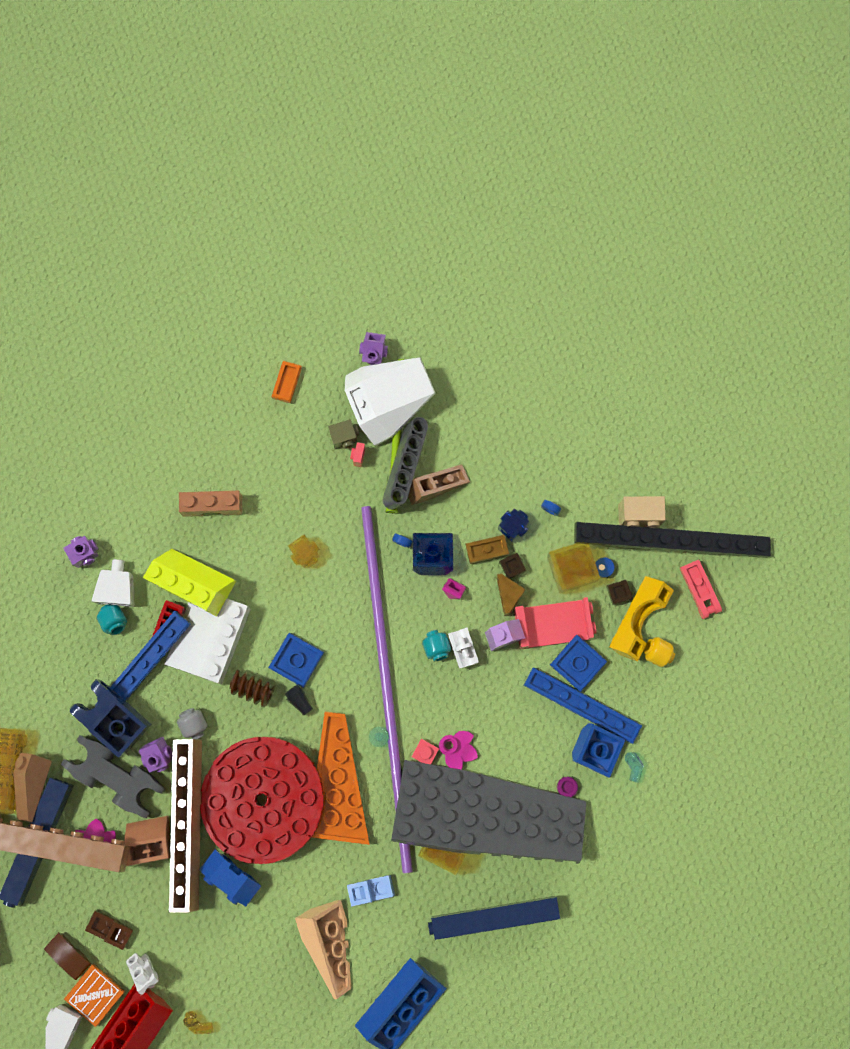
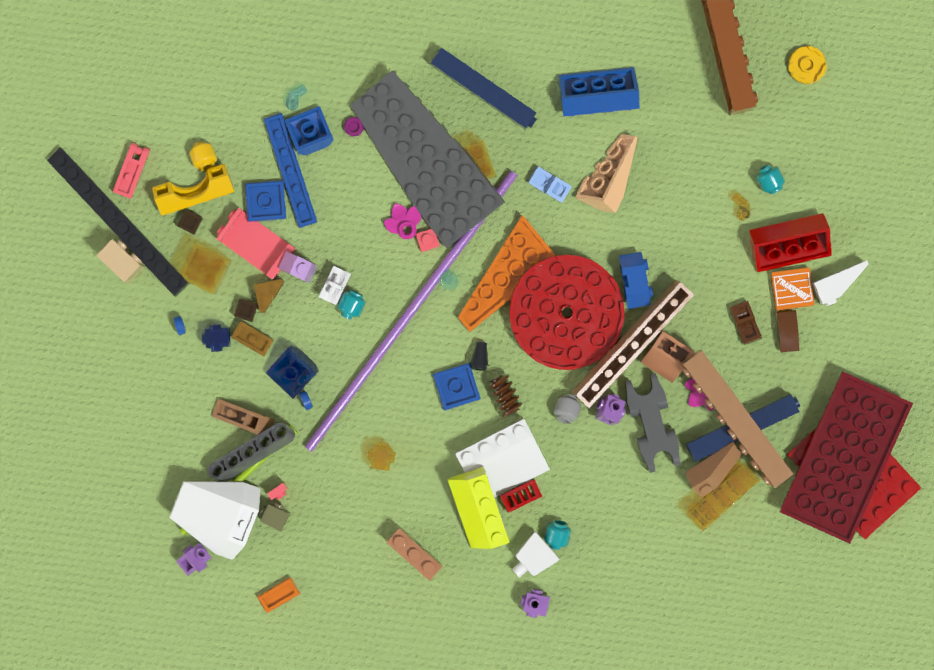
camera: 135 degrees left, 10 degrees up
(109, 712) = (621, 468): dark blue brick -> none
(142, 972) = (747, 273): white hips -> none
(150, 655) = (564, 482): blue tile -> none
(453, 589) = (302, 332): dark pink slope -> none
(605, 567) = (182, 249): blue tile -> none

